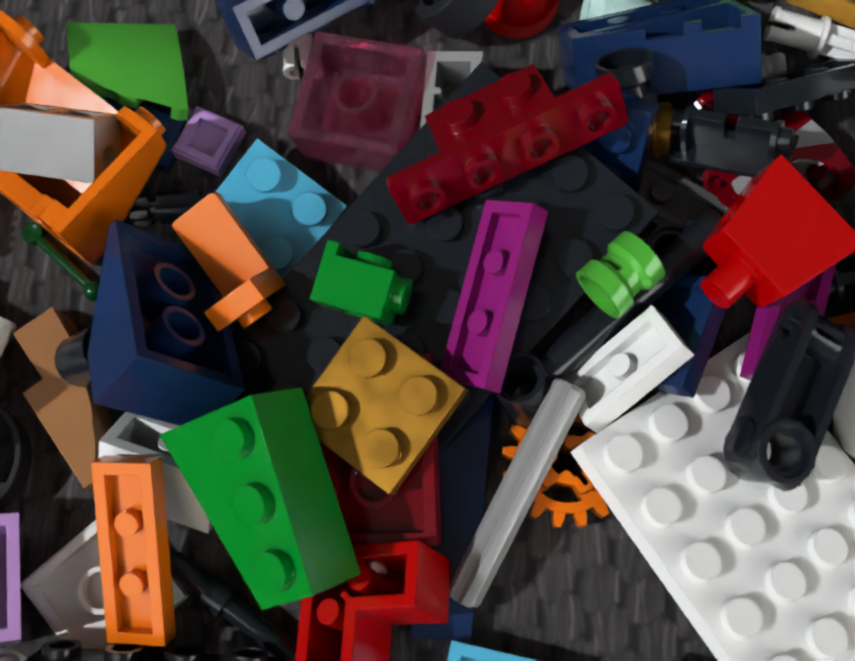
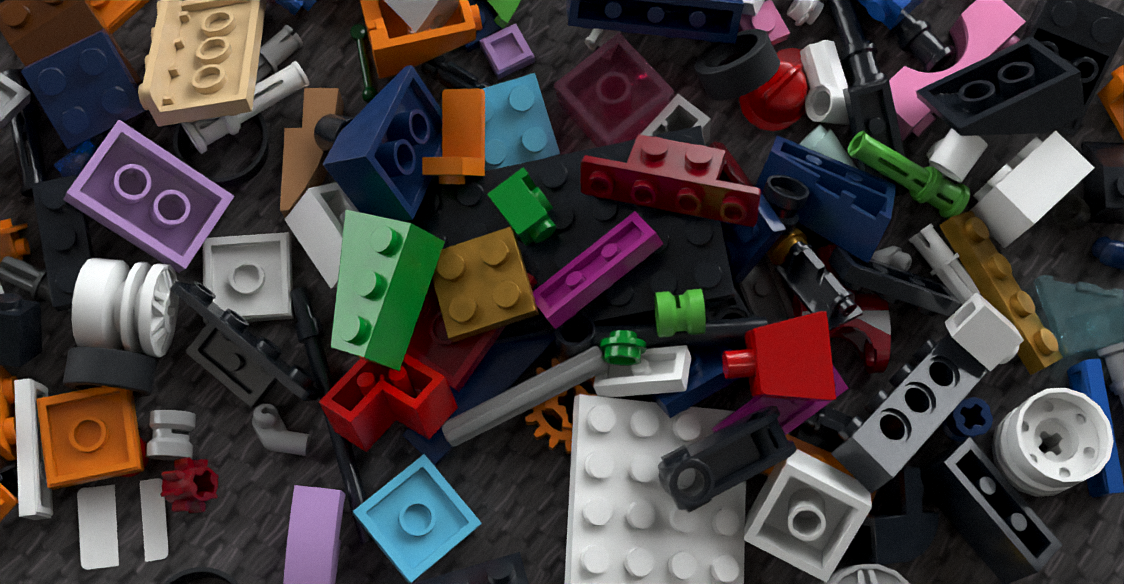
camera: 25 degrees right, 0 degrees up
(134, 549) = (283, 265): orange plate -> none
(588, 358) = (623, 348): none -> green plate

